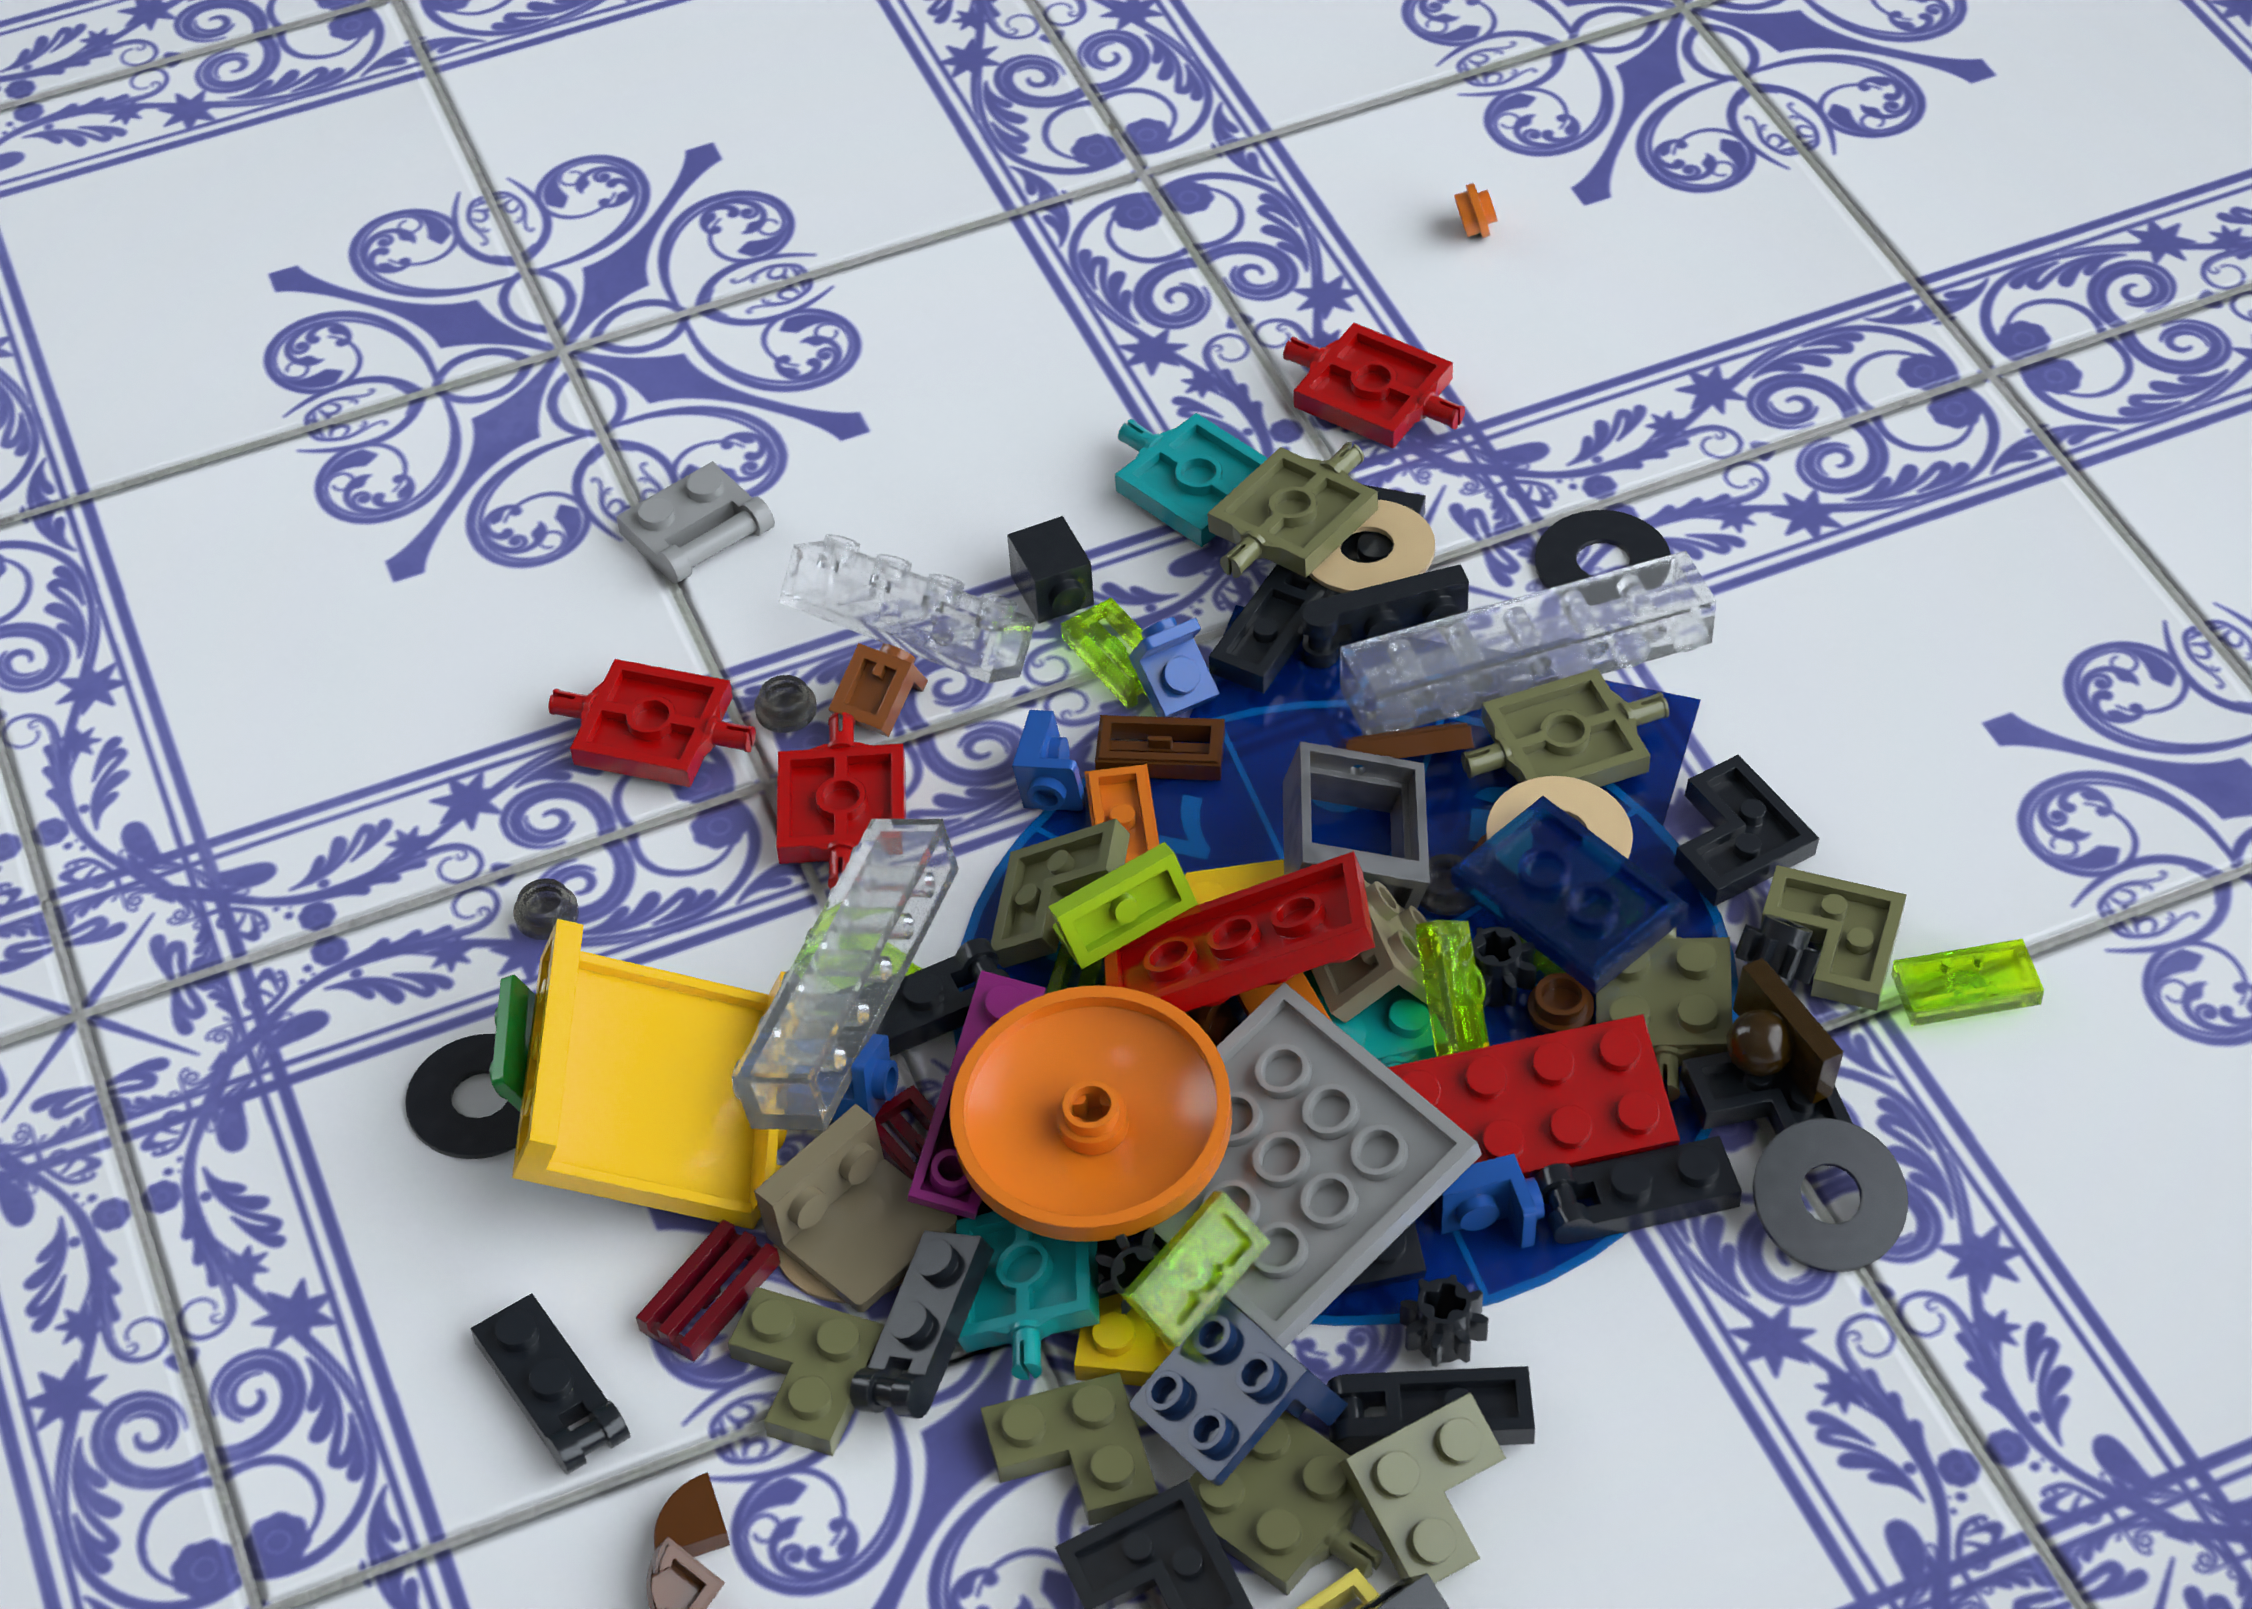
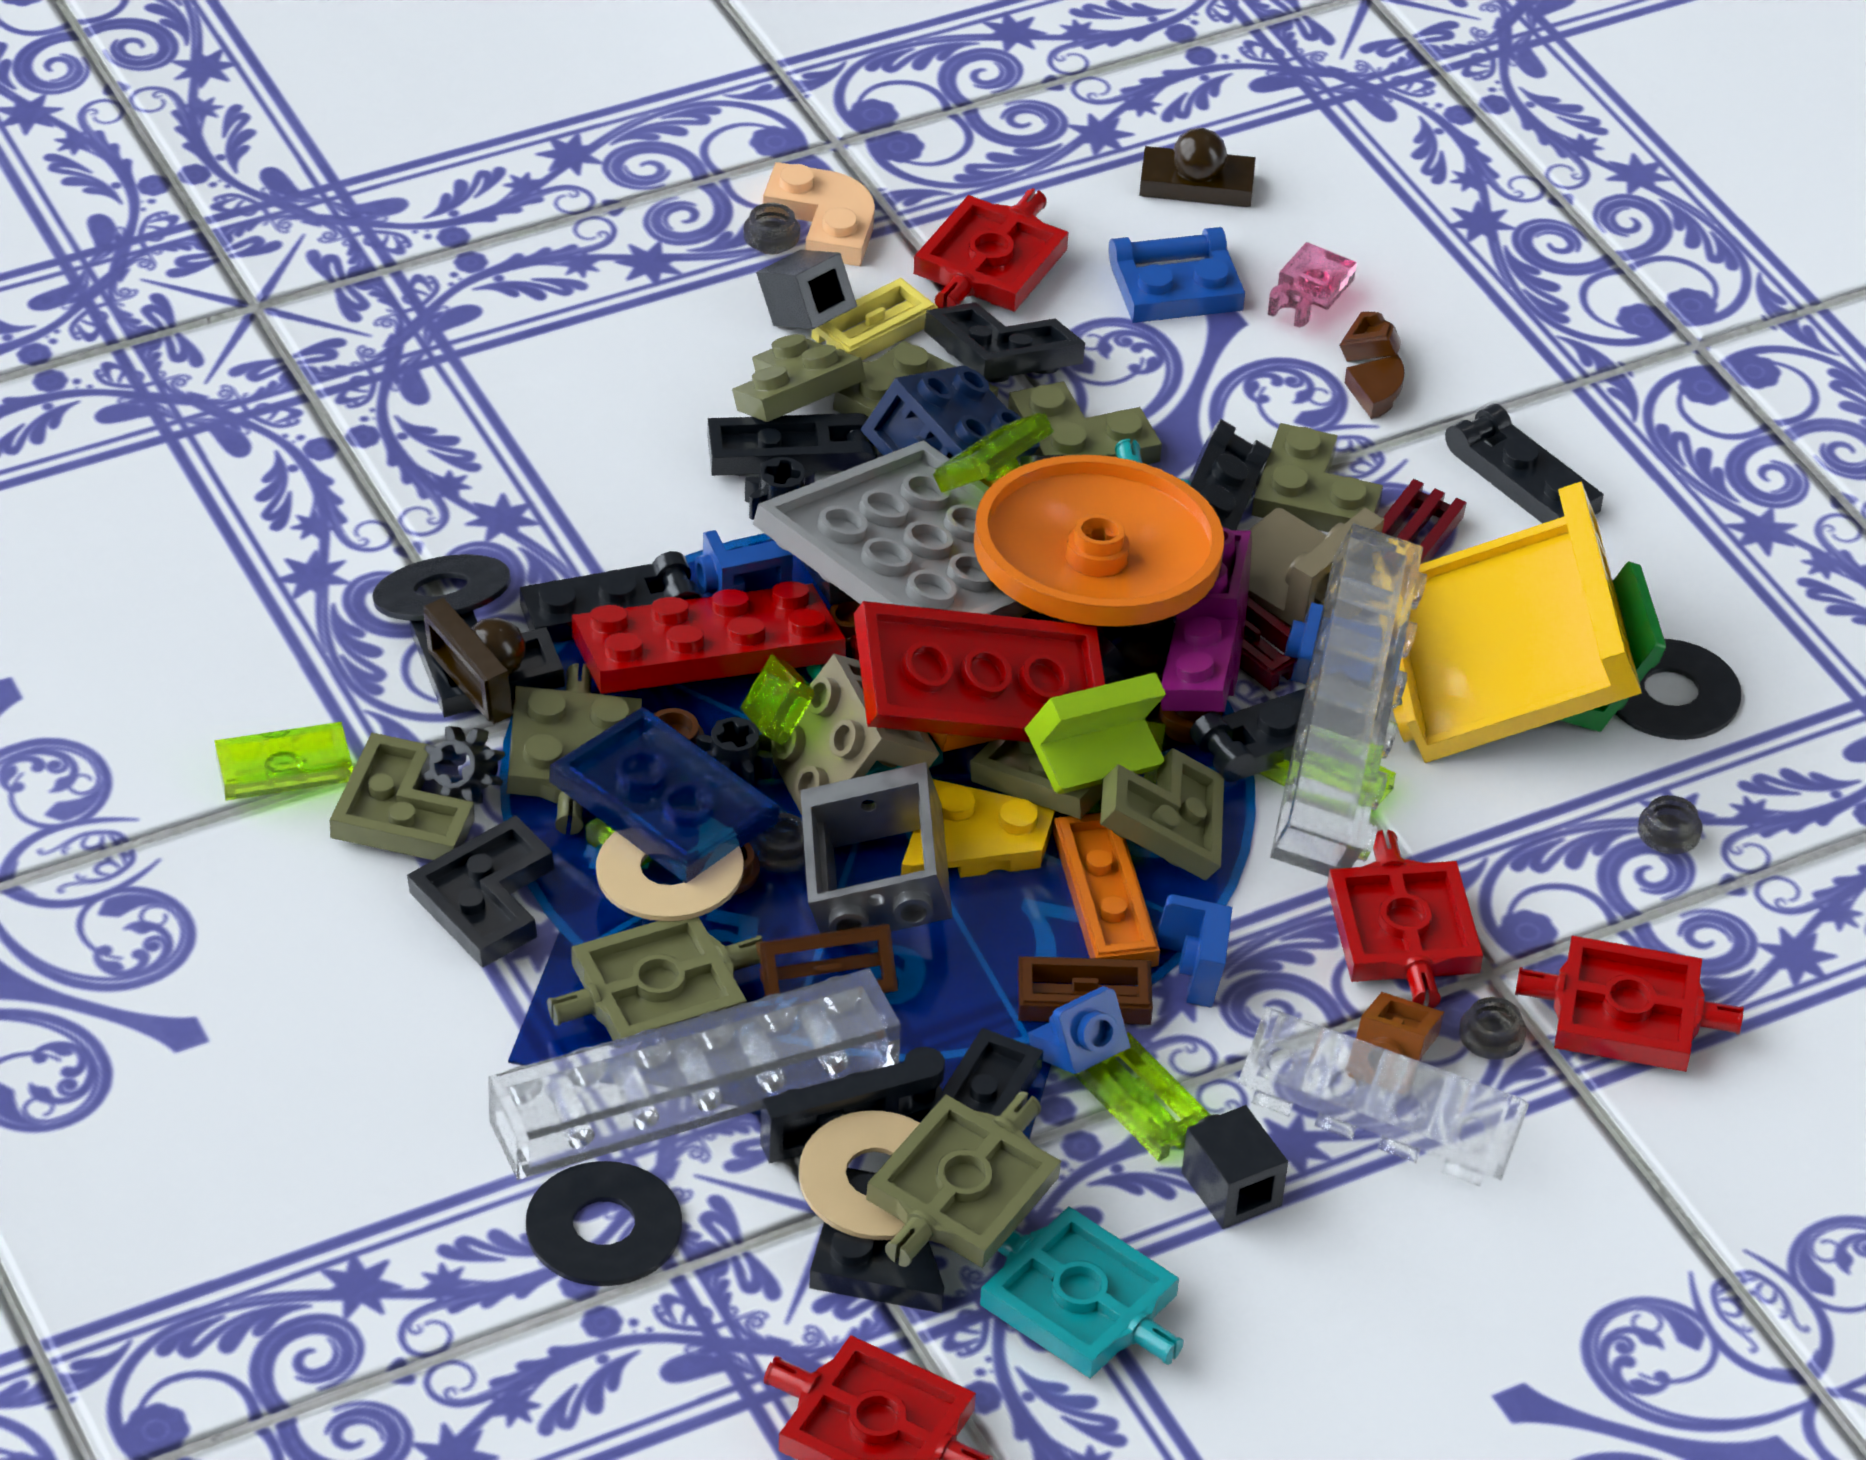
camera: 170 degrees right, 5 degrees down
(693, 521) = (1673, 1268): light grey plate -> none

